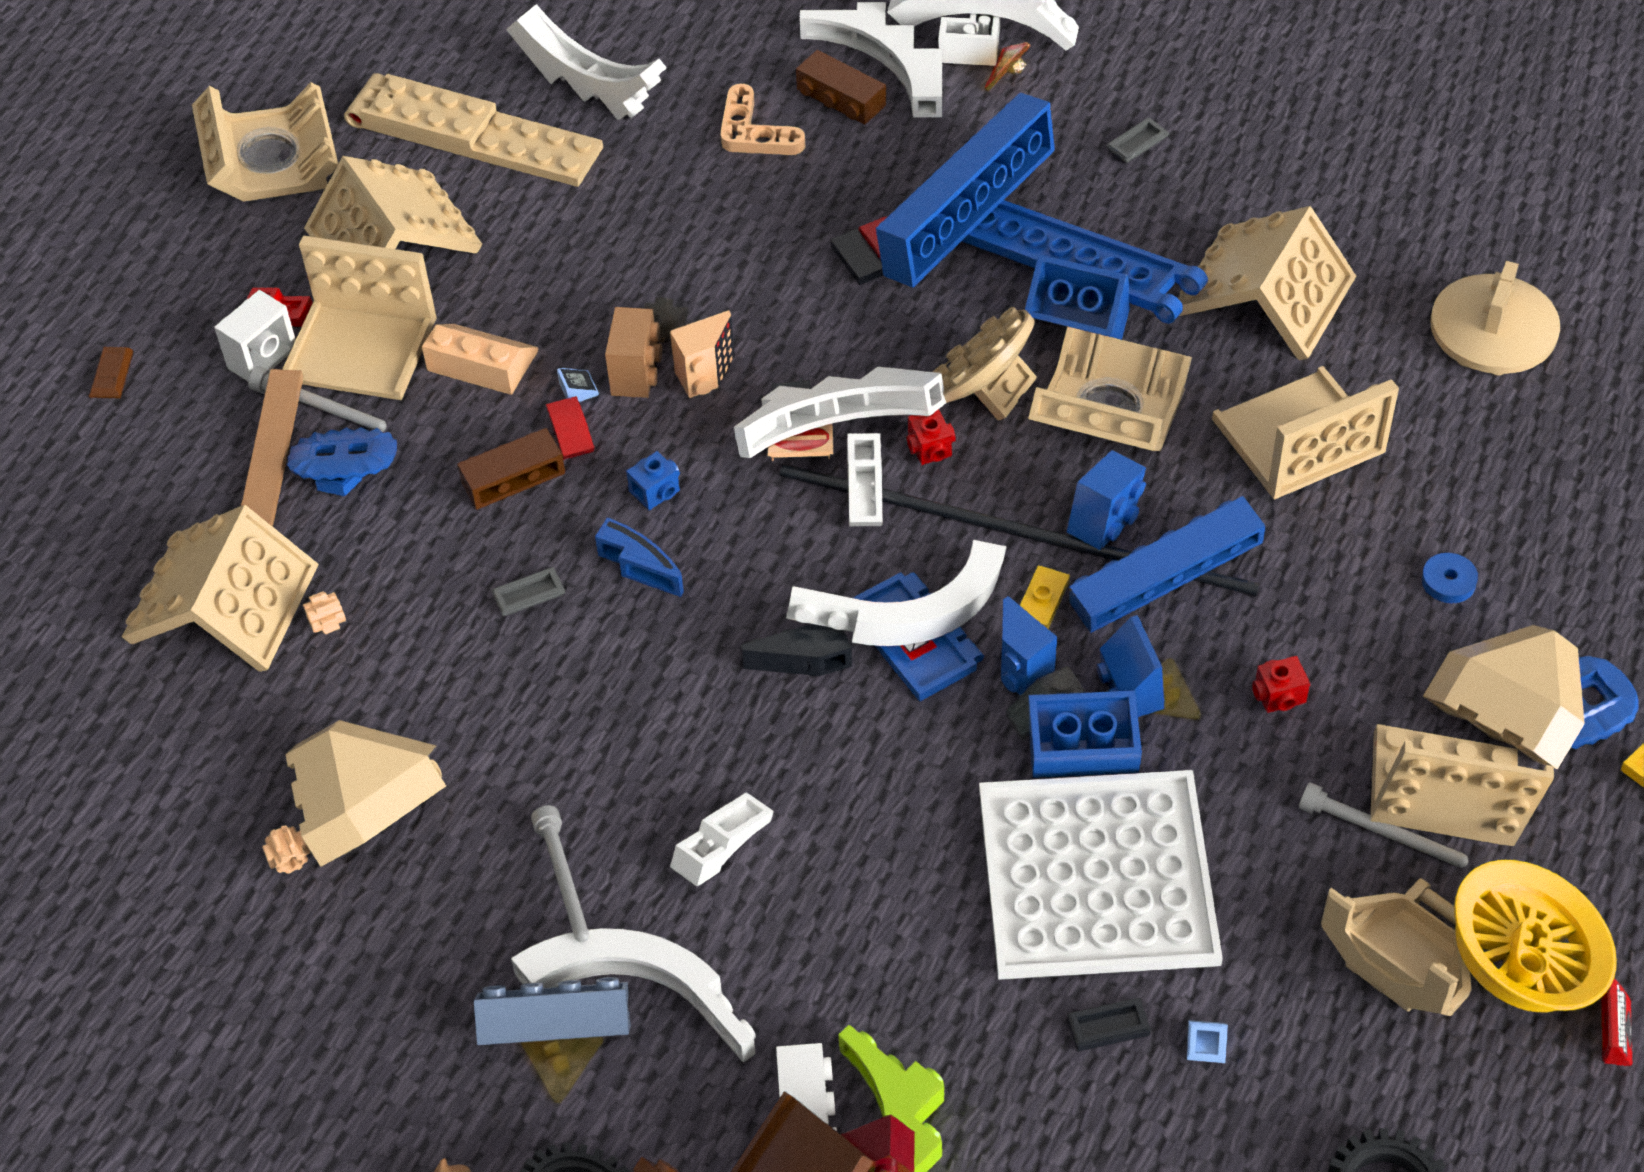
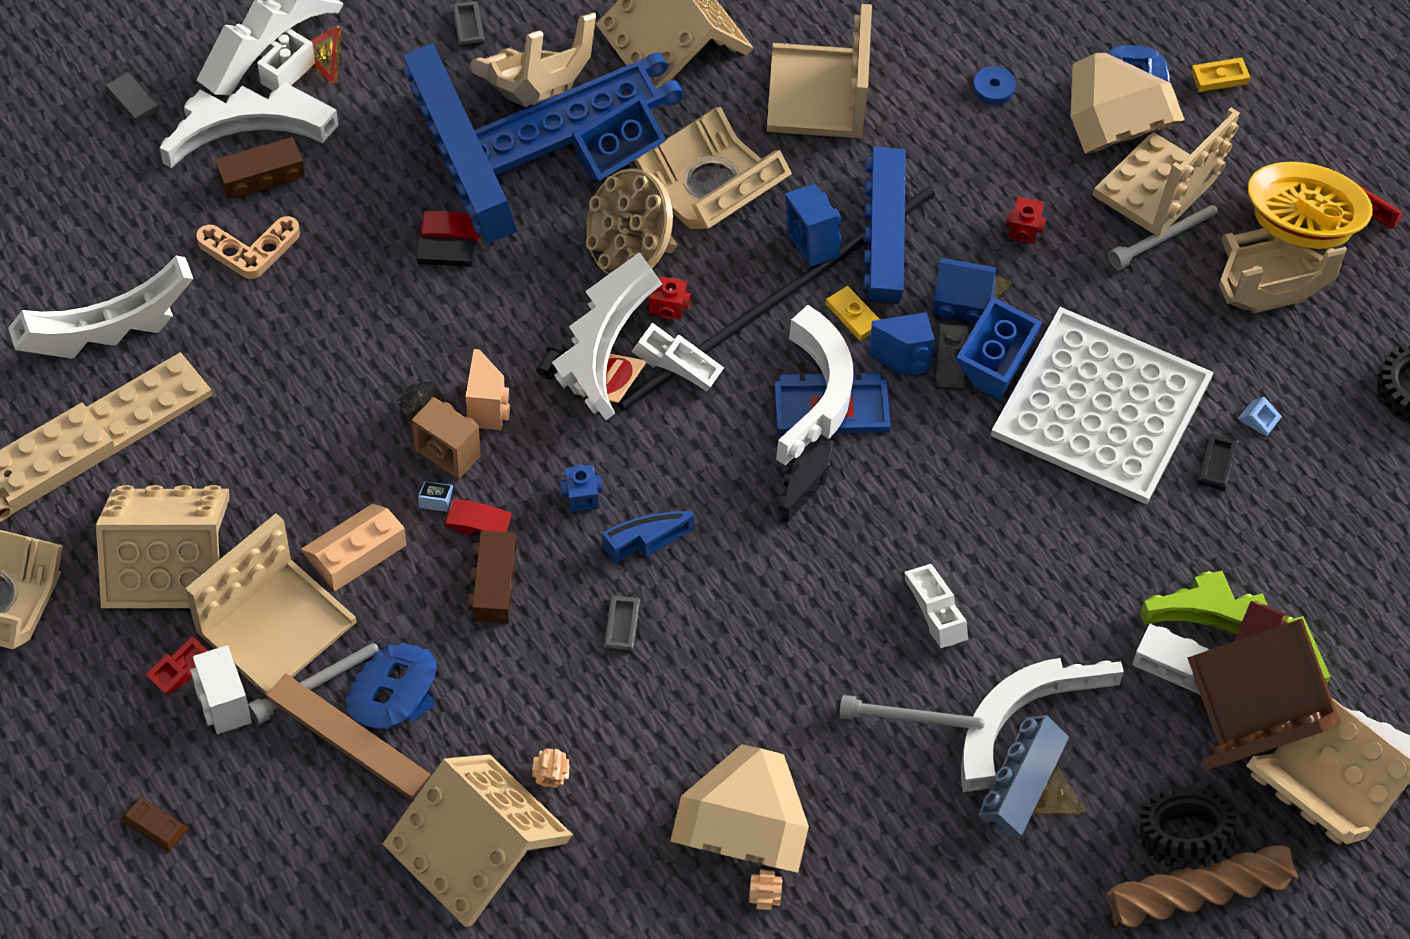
camera: 65 degrees left, 5 degrees up
(1107, 203) = (536, 73): none -> tan piece

